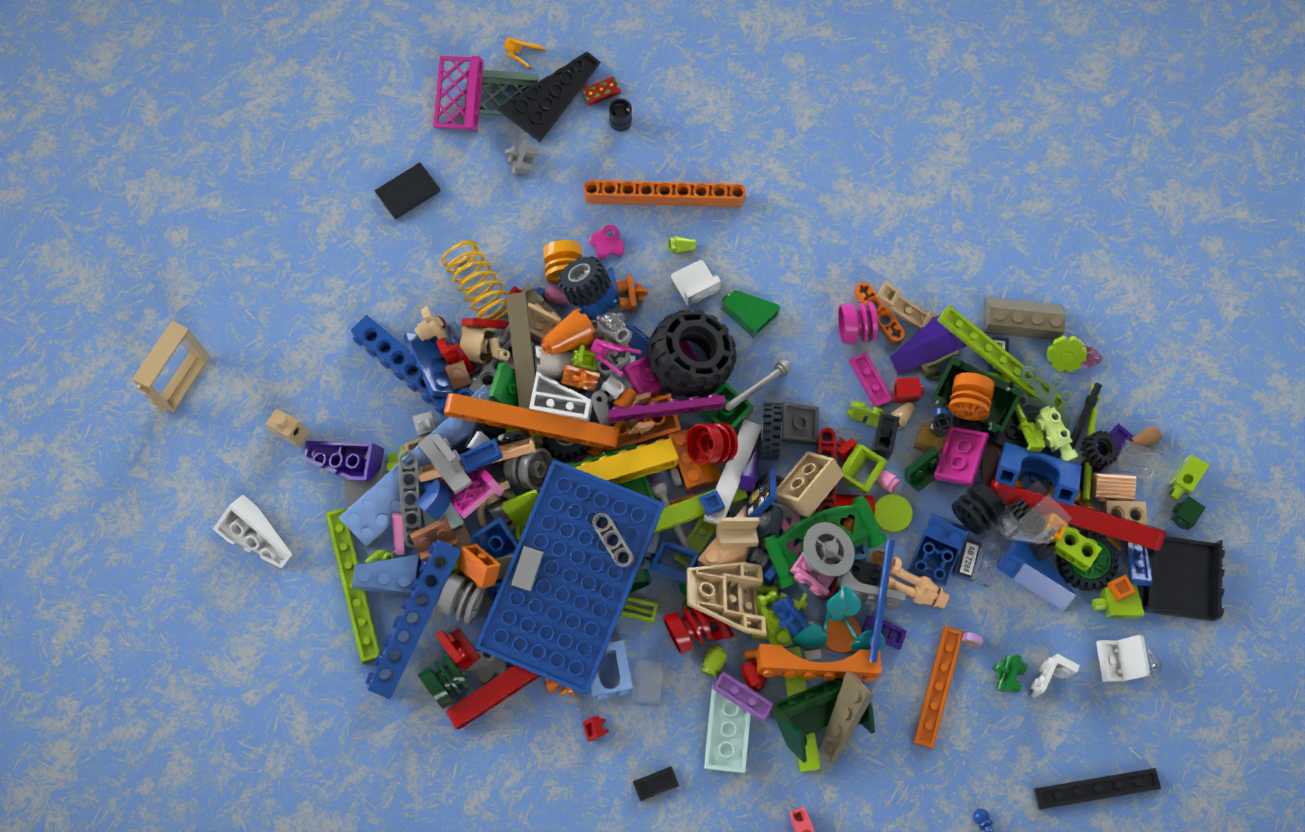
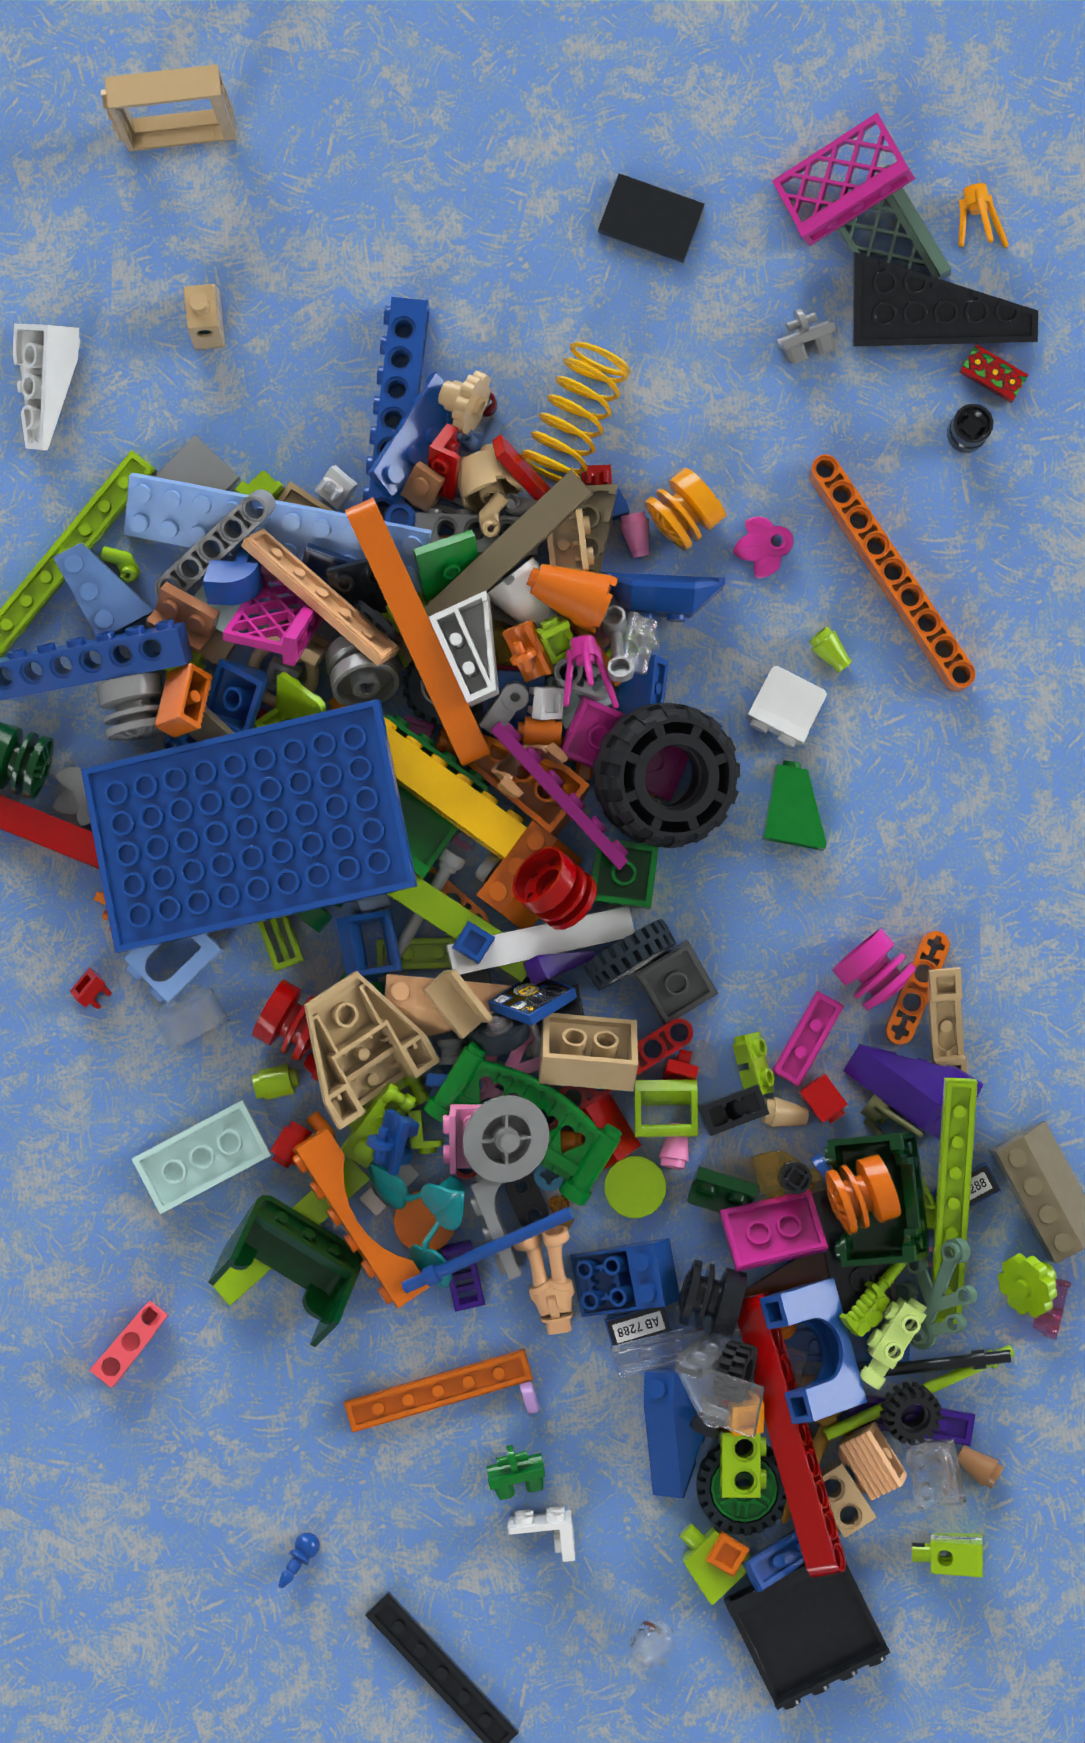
camera: 60 degrees right, 15 degrees up
(347, 459) = (217, 430): dark purple wedge -> none
(398, 533) = (163, 564): bright pink tile -> none
(445, 461) = (281, 560): light grey bracket -> none
(458, 648) = (70, 746): red bracket -> none
(478, 439) = (342, 585): white tile -> none
(480, 456) = (321, 600): blue tile -> none
(527, 568) = (216, 766): light grey tile -> none
(584, 281) = (664, 561): black wheel -> none
(606, 533) = (306, 861): light grey beam -> none
(627, 286) = (695, 638): orange hips -> none
(655, 783) = (75, 1110): black tile -> none
(743, 696) = (252, 1149): medium lavender tile -> none
(781, 368) = (738, 908): light grey piece -> none
(847, 712) = (310, 1297): dark tan wing -> none
(1123, 659) = (631, 1609): white bracket -> none
(1187, 513) = (902, 1583): dark green brick -> none

